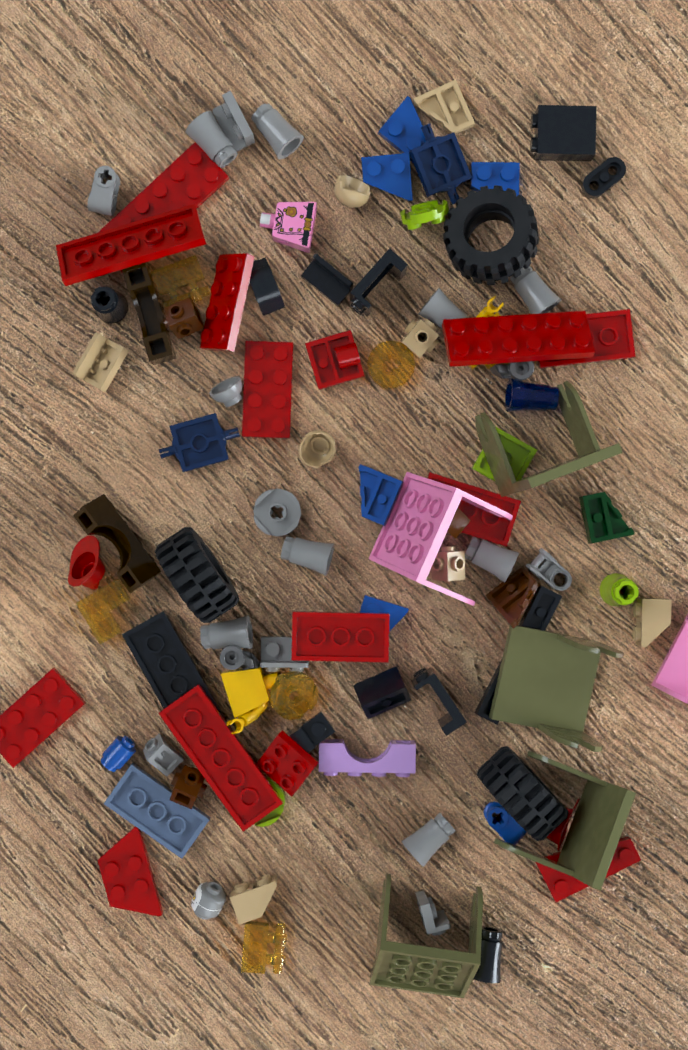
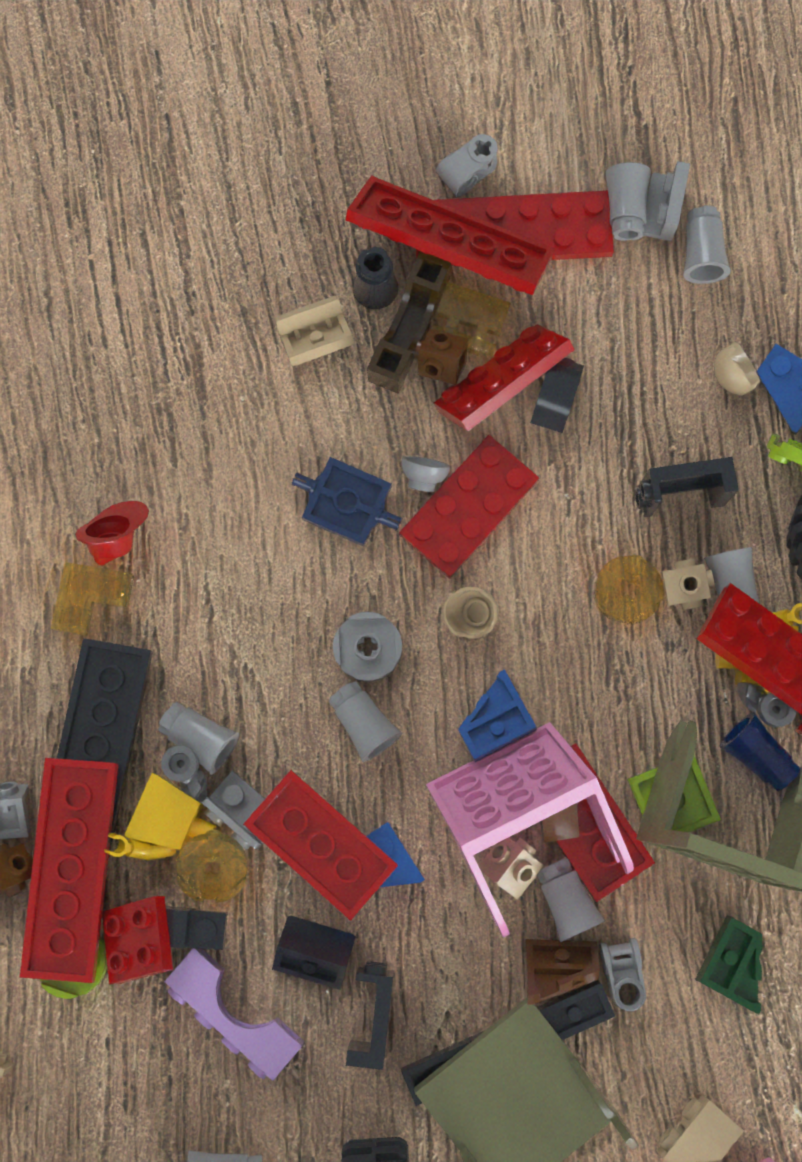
camera: 40 degrees right, 10 degrees down
(102, 519) = (171, 495): dark brown arch -> none
(196, 575) = (219, 637): black tyre -> none
(292, 224) = (642, 353): bright pink torso -> none
(327, 280) = (632, 442): black panel -> none
(334, 360) = (570, 533): red plate -> none
(612, 585) = (676, 1060): lime plant -> none

